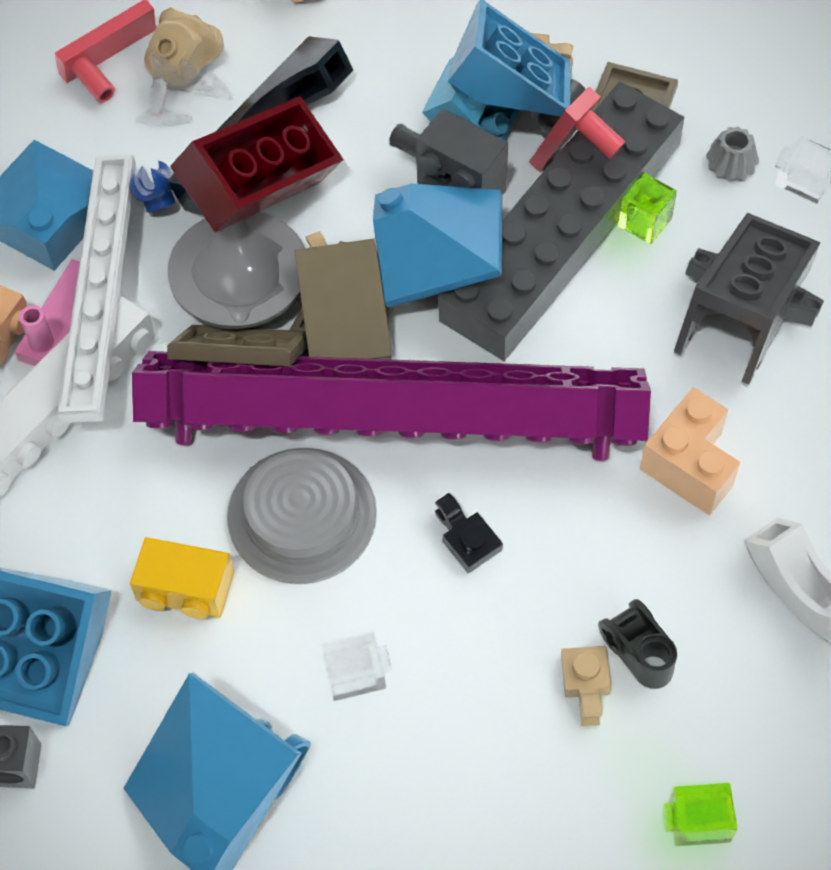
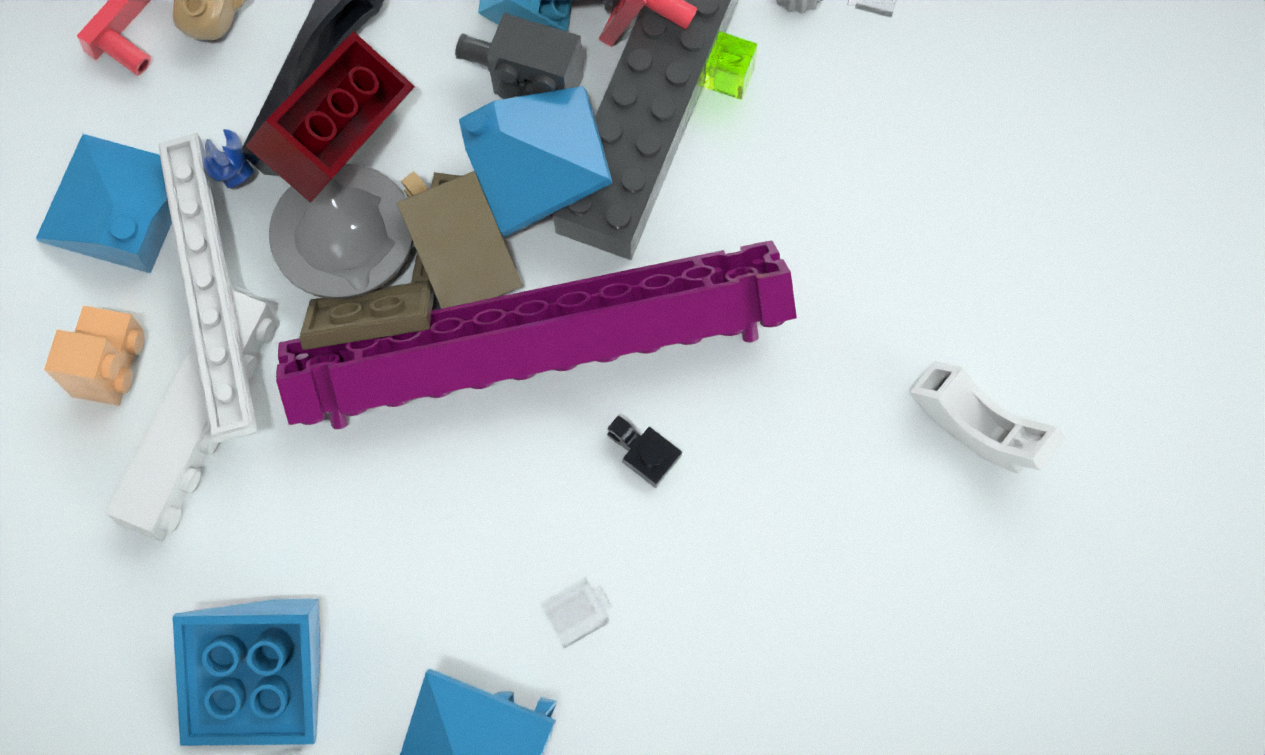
camera: 15 degrees left, 10 degrees up
(52, 322) = (170, 330): bright pink piece -> none
(167, 76) = (204, 35): clear piece -> none
(182, 578) = (383, 569): yellow brick -> none
(301, 515) = (478, 471): light grey piece -> none
(587, 677) = (795, 563): tan plate -> none
(637, 636) = (831, 512): pearl dark grey piece -> none
(685, 456) = (830, 318): light nougat brick -> none
(700, 814) = (934, 670): clear neon green brick -> none
(753, 282) = (854, 122): dark grey piece -> none

